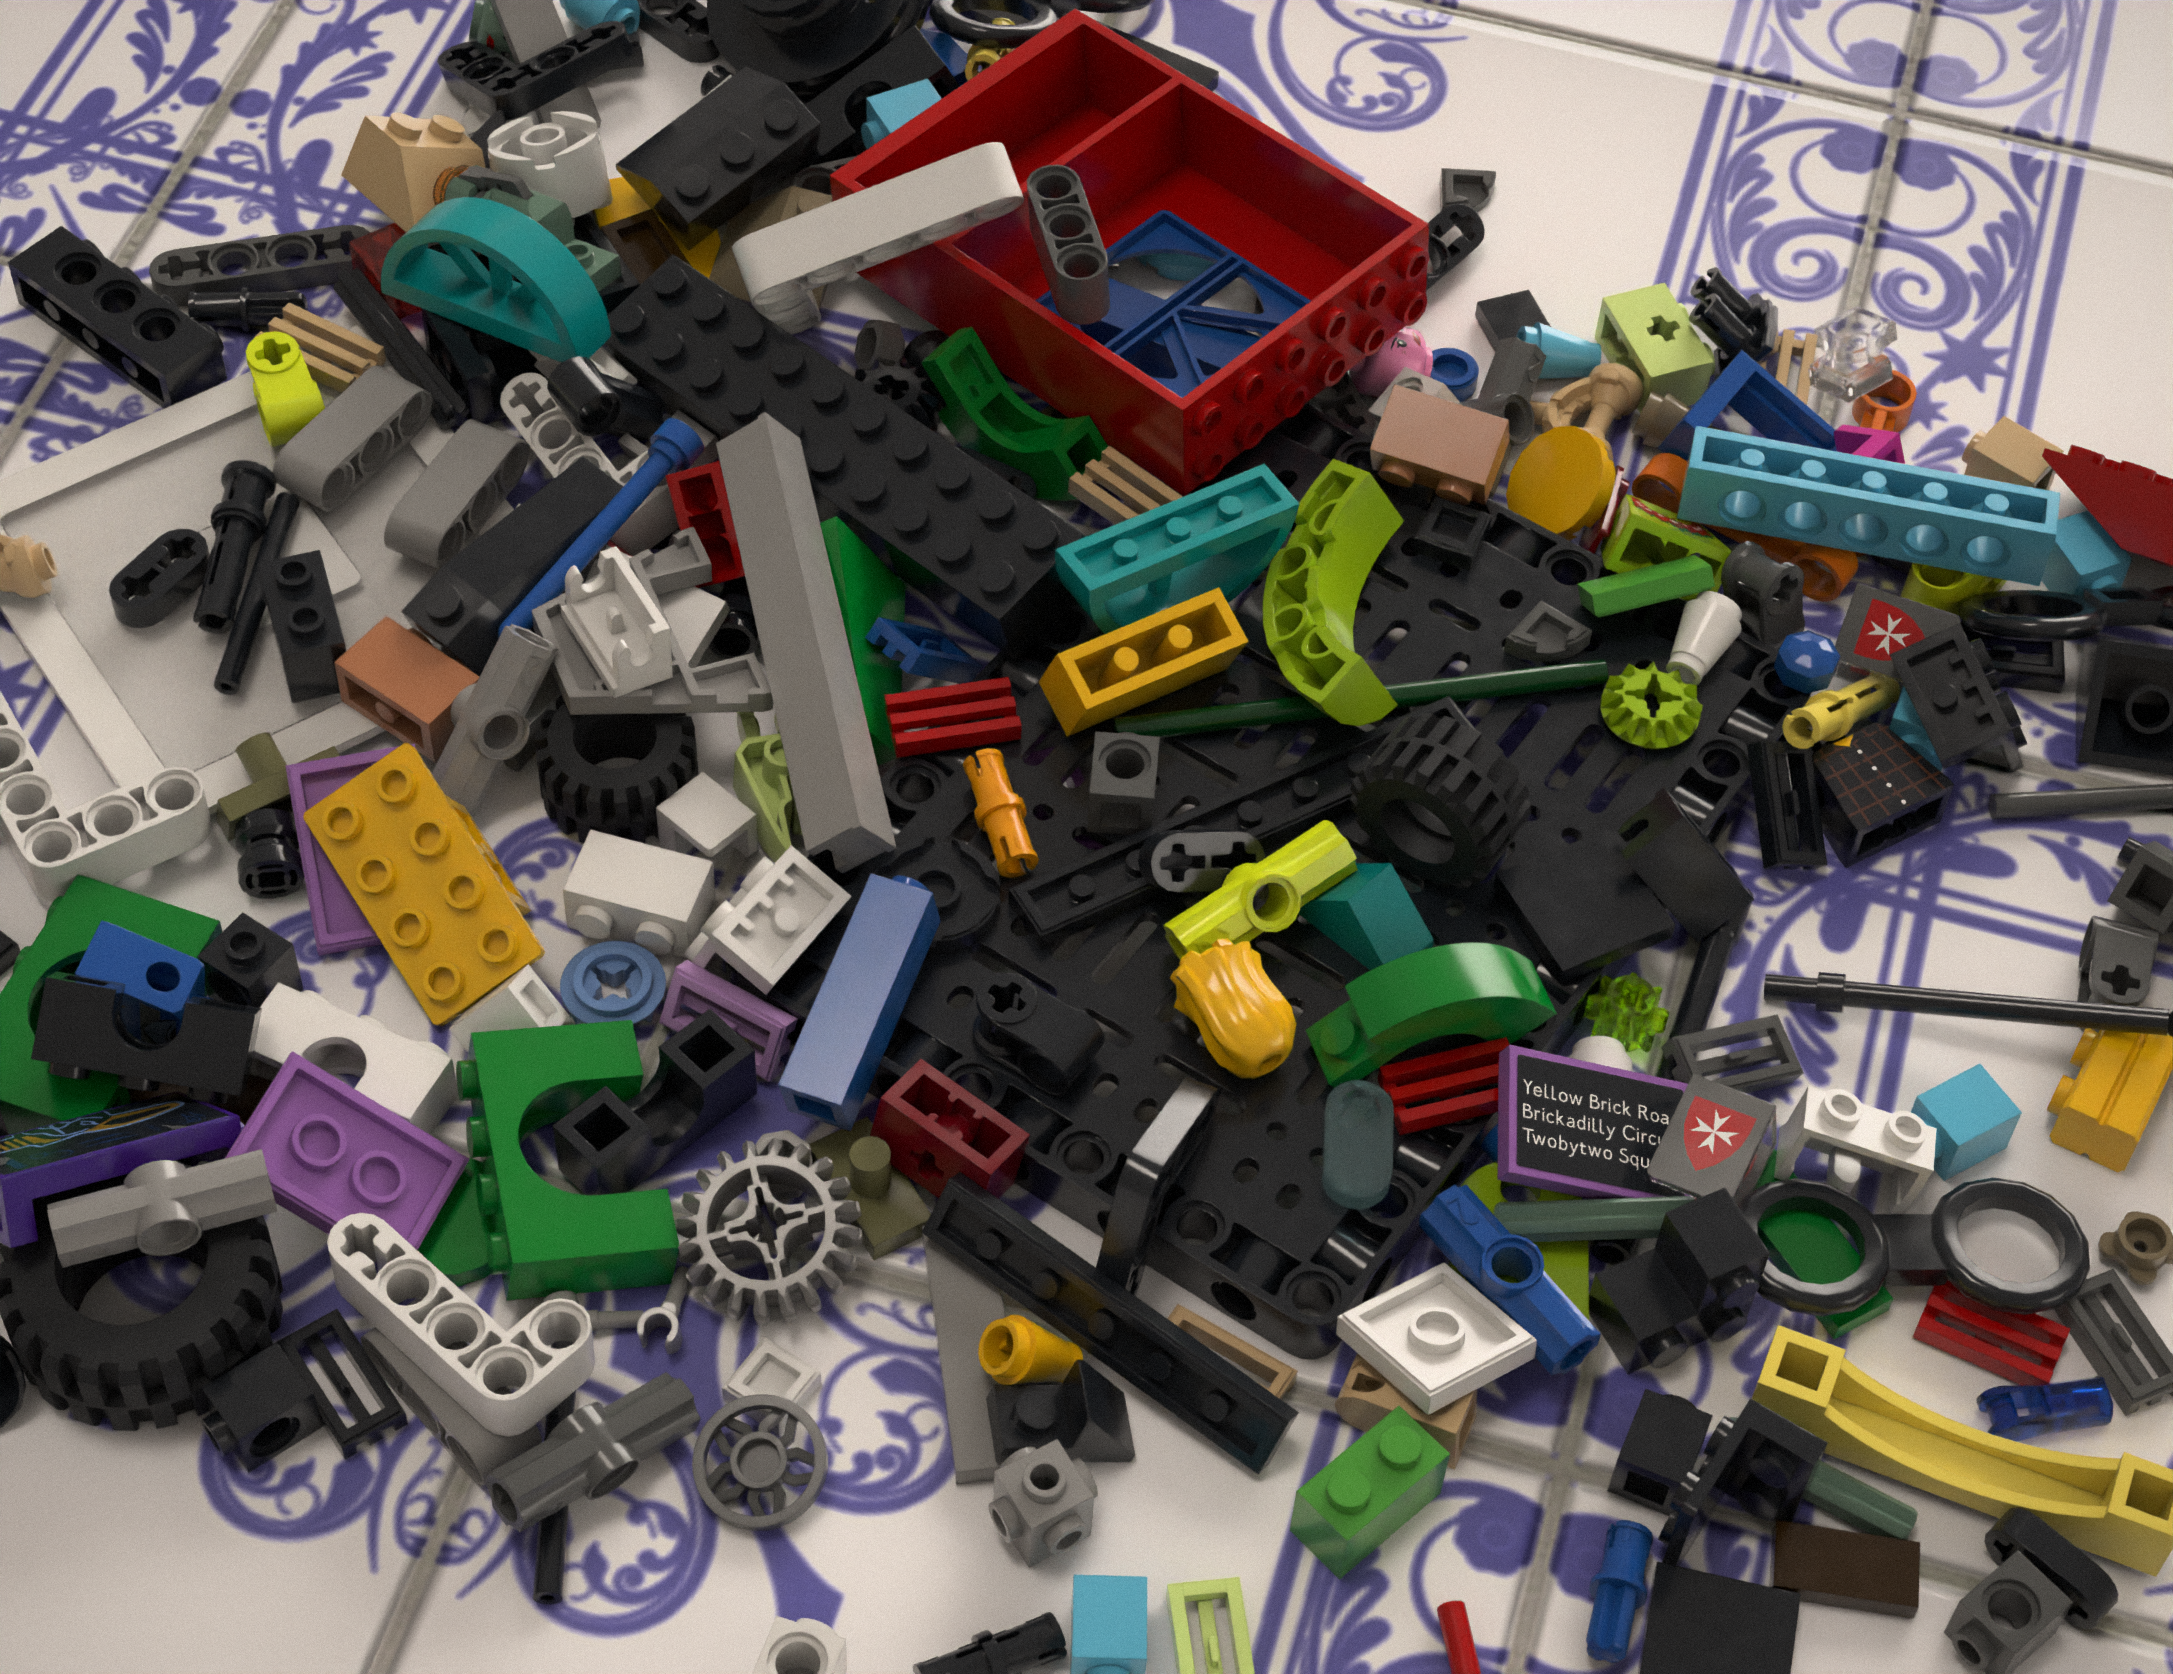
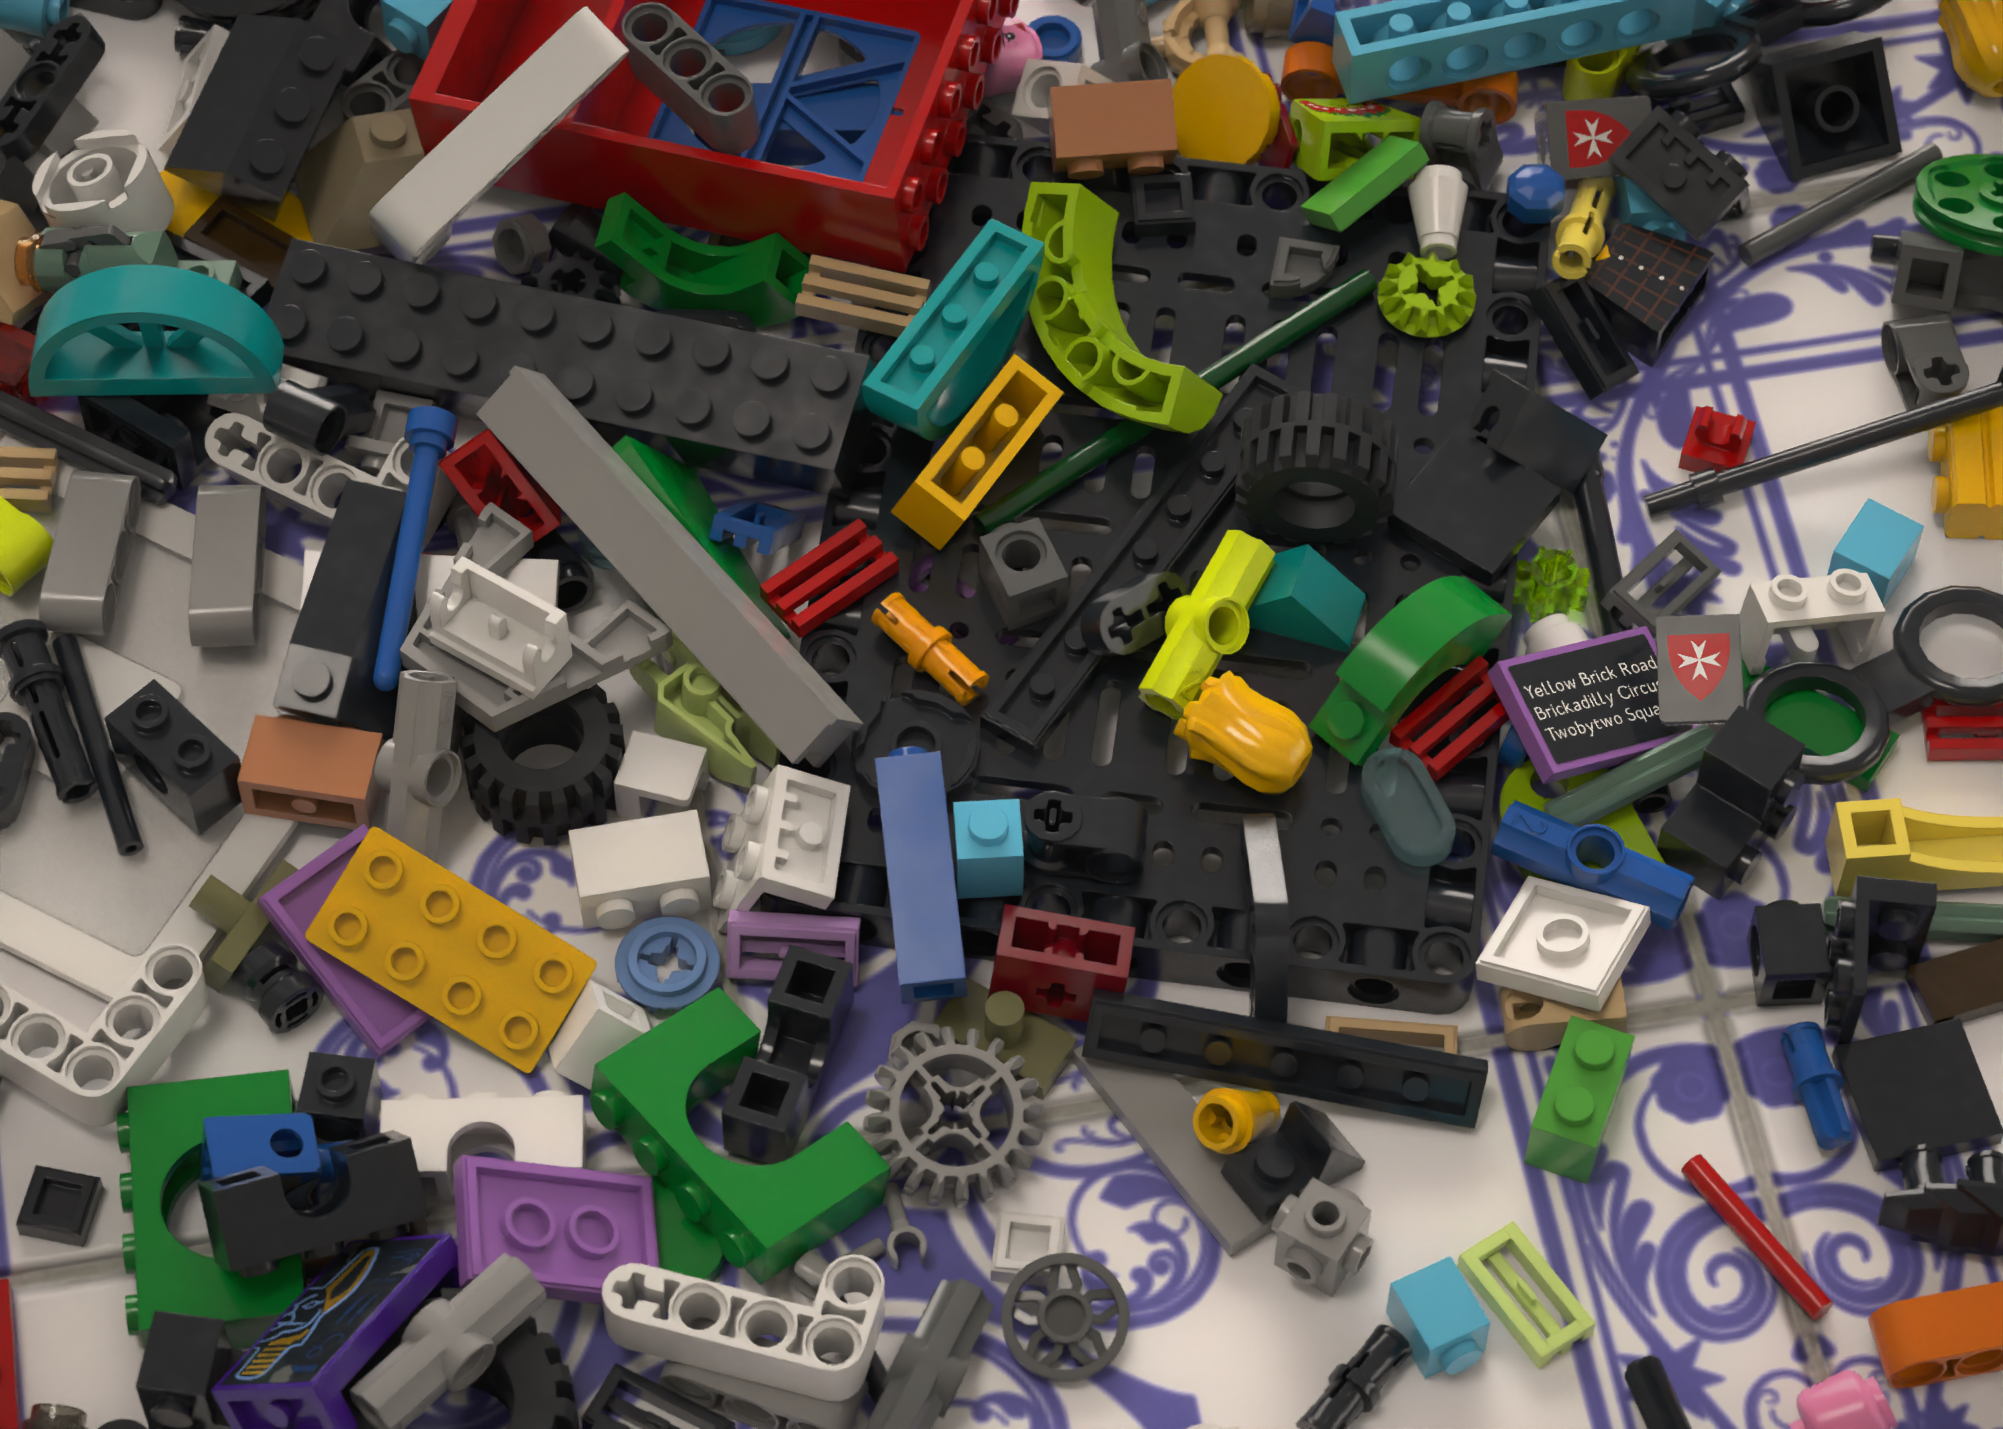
camera: 25 degrees left, 5 degrees up
(936, 1003) = (988, 848): none -> medium azure brick
(1867, 954) = (1716, 440): none -> red tile

